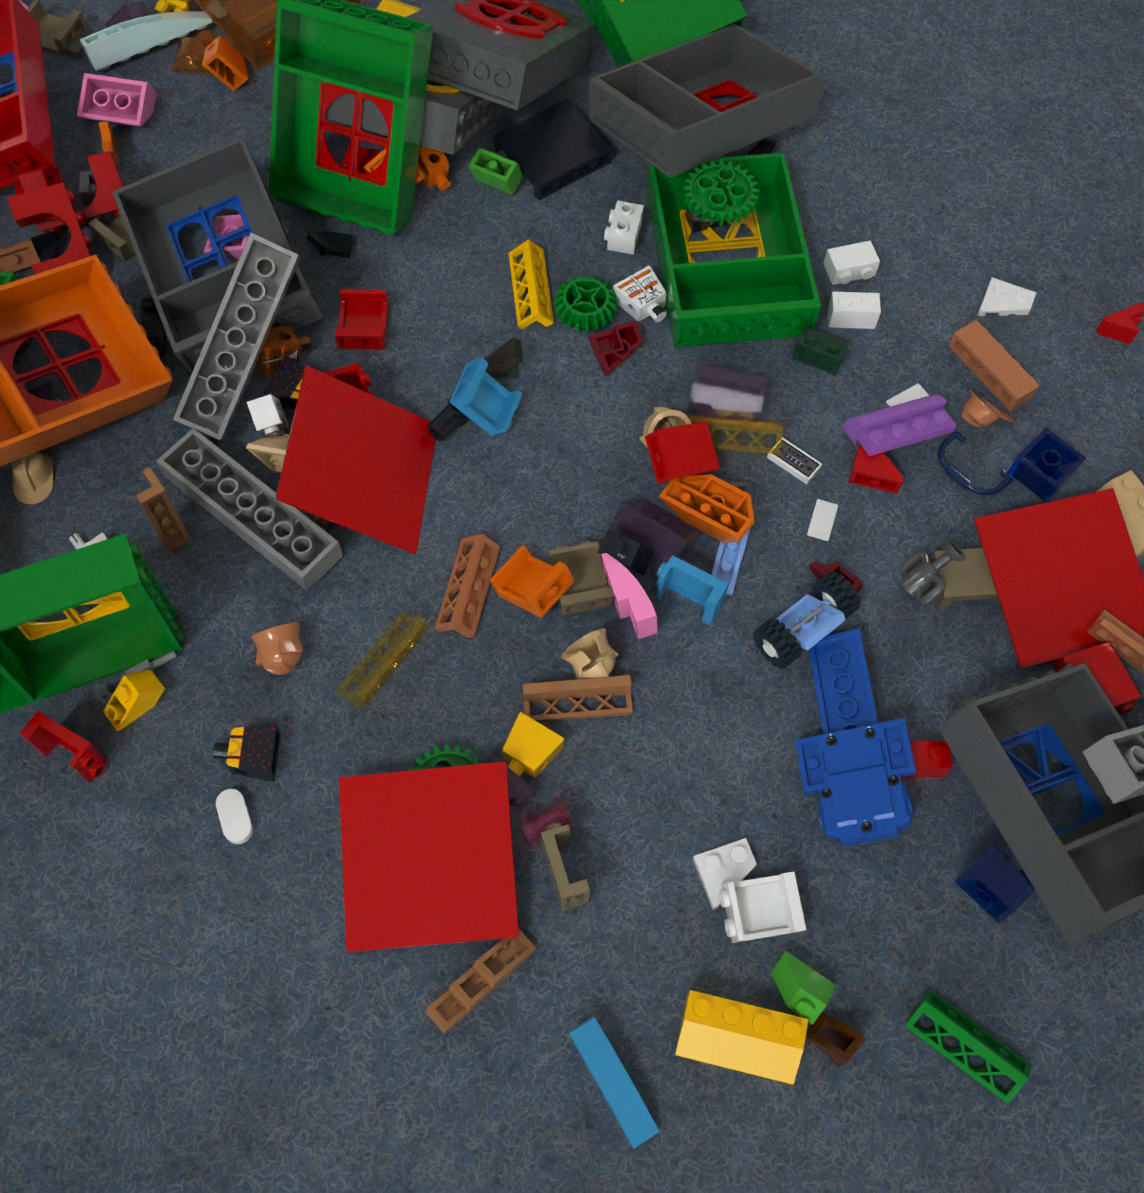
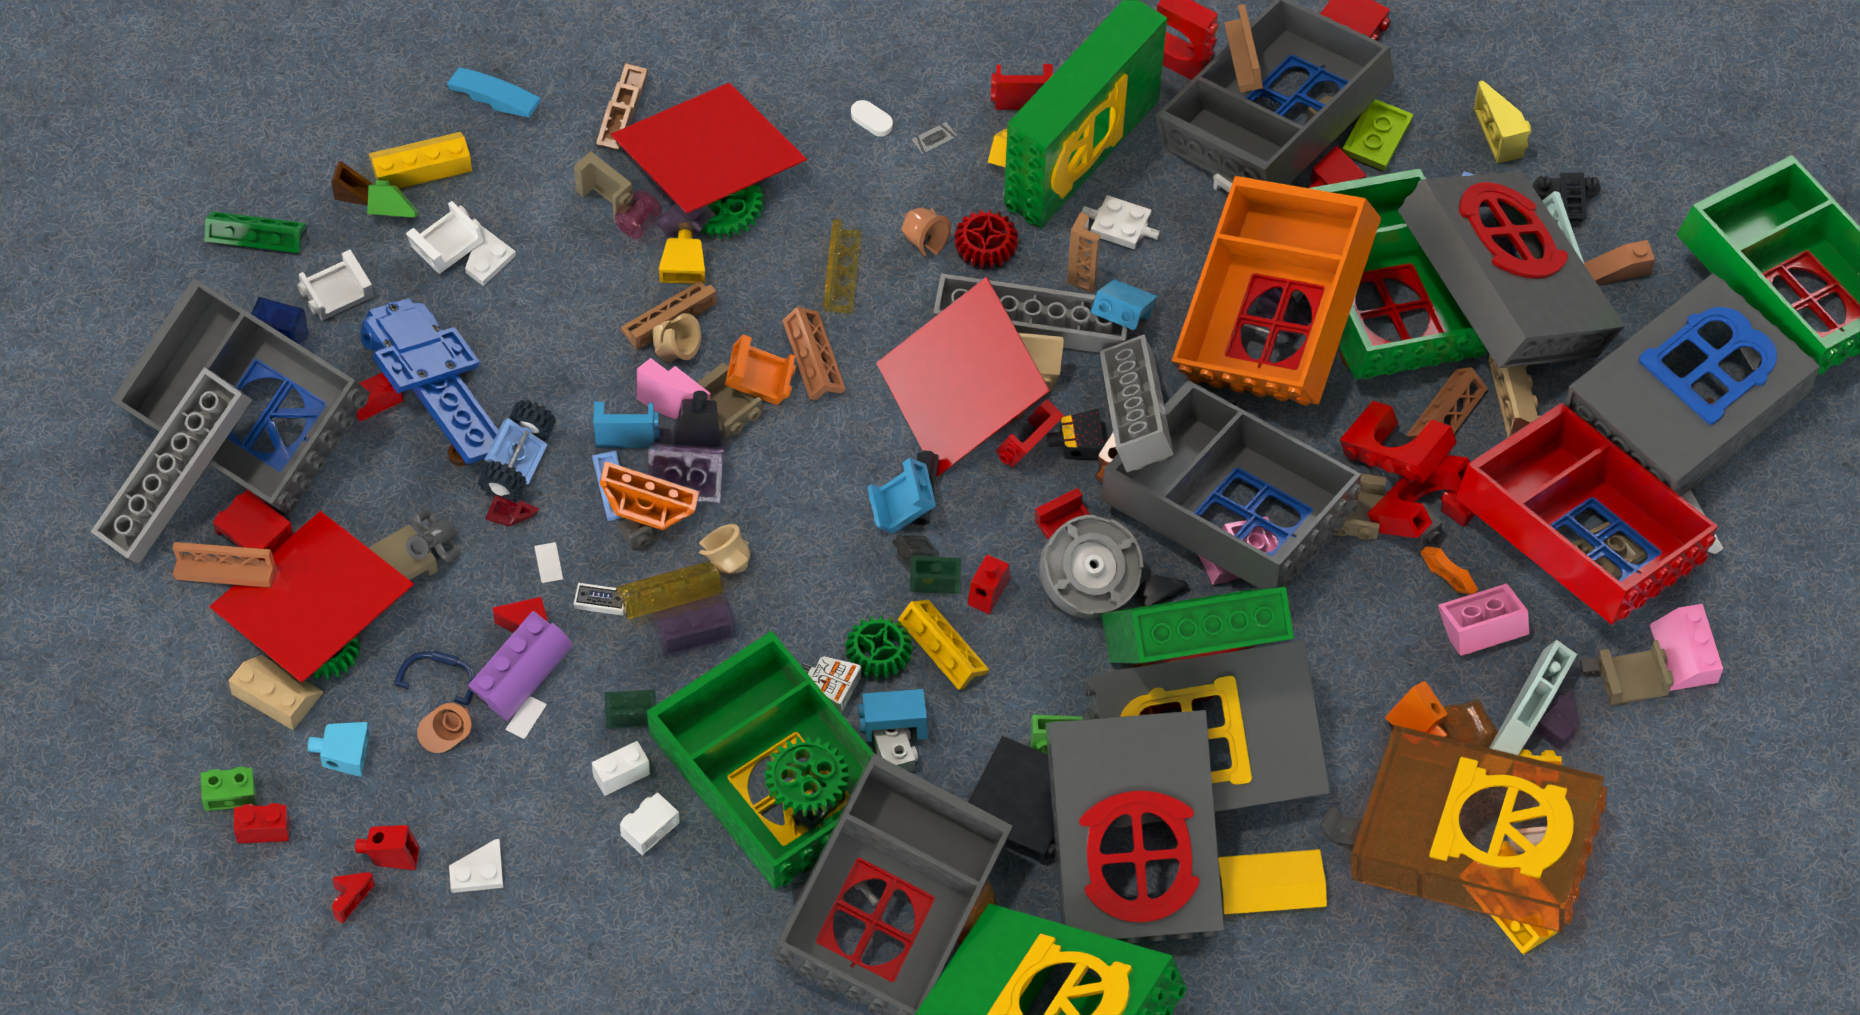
camera: 150 degrees right, 5 degrees down
(167, 456) = (1123, 304): none -> dark azure panel
(189, 762) = (934, 137): none -> sticker
(231, 598) = (1000, 242): none -> red gear
(251, 751) = (889, 157): black torso -> none
(268, 415) = (1074, 385): white brick -> none
(376, 262) = (1094, 543): none -> light grey piece
(461, 303) = (992, 578): none -> red torso
(500, 326) = (935, 574): none -> clear green brick
(611, 239) = (893, 711): none -> dark azure panel
(615, 345) = (826, 625): dark red slope -> none
(682, 452) = (695, 529): red panel -> none
(907, 917) = (336, 287): none -> white panel
(993, 365) = (459, 780): nougat brick -> none
(1046, 465) = (370, 693): clear blue slope -> none
(1079, 335) = (390, 847): none -> red torso
(1089, 436) = (342, 747): none -> medium azure torso

